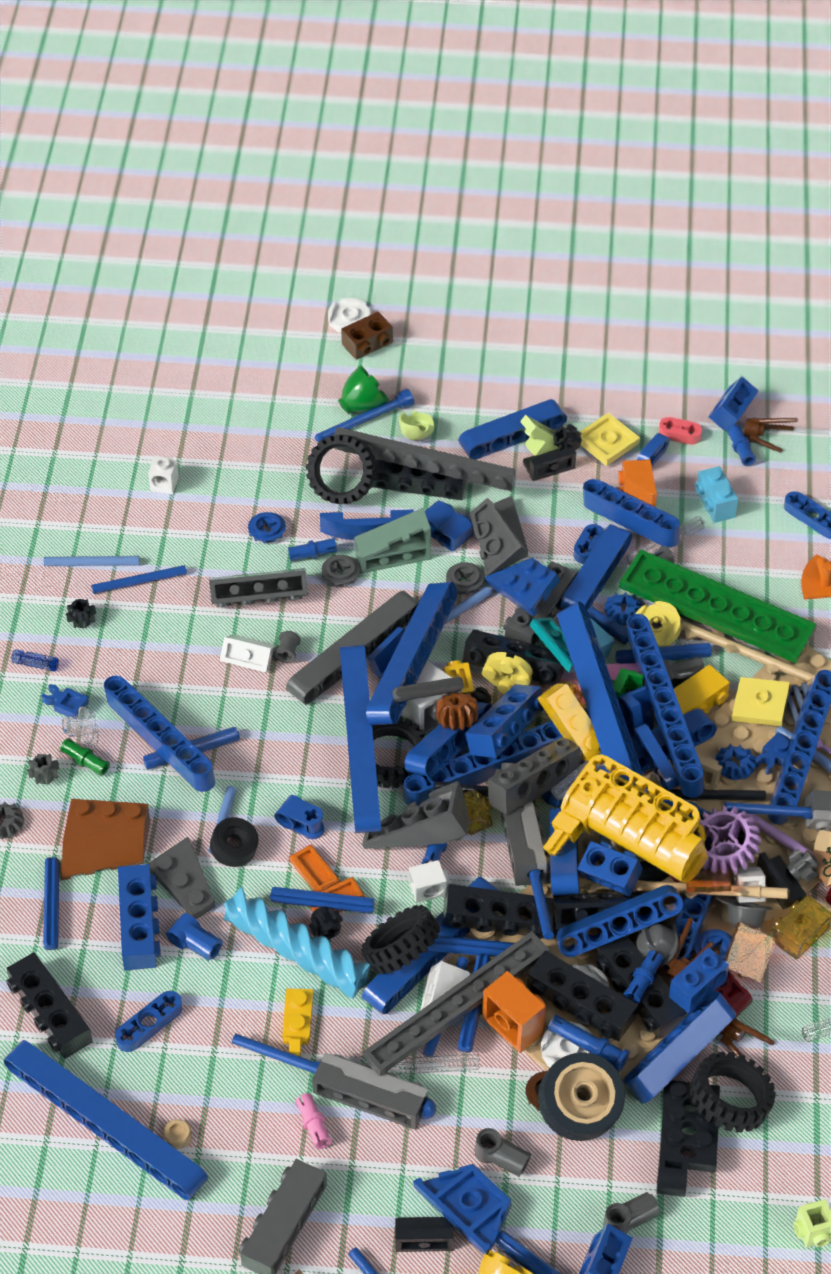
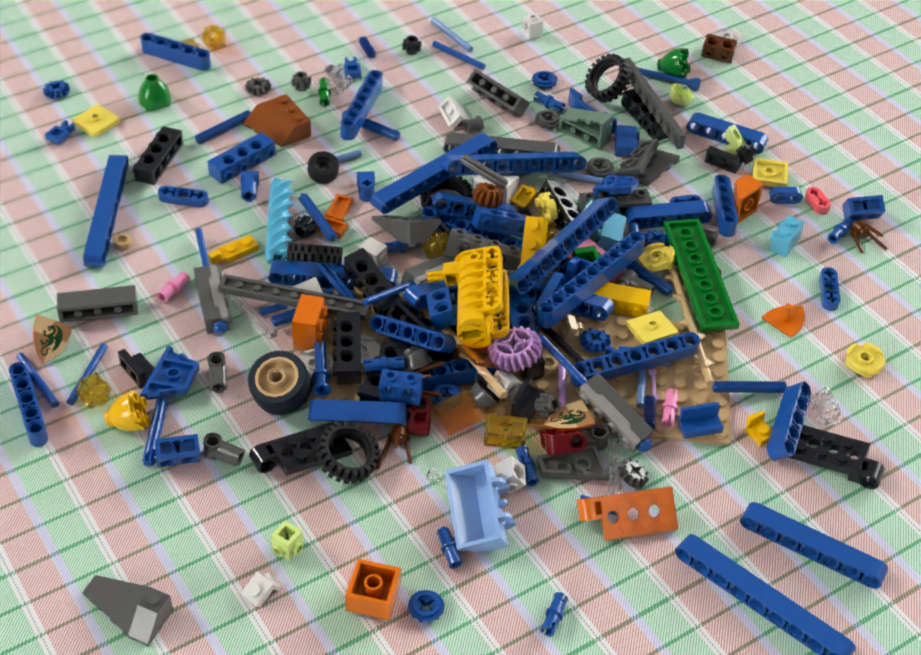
camera: 50 degrees right, 5 degrees down
(183, 878) = (285, 162): dark grey wing -> none

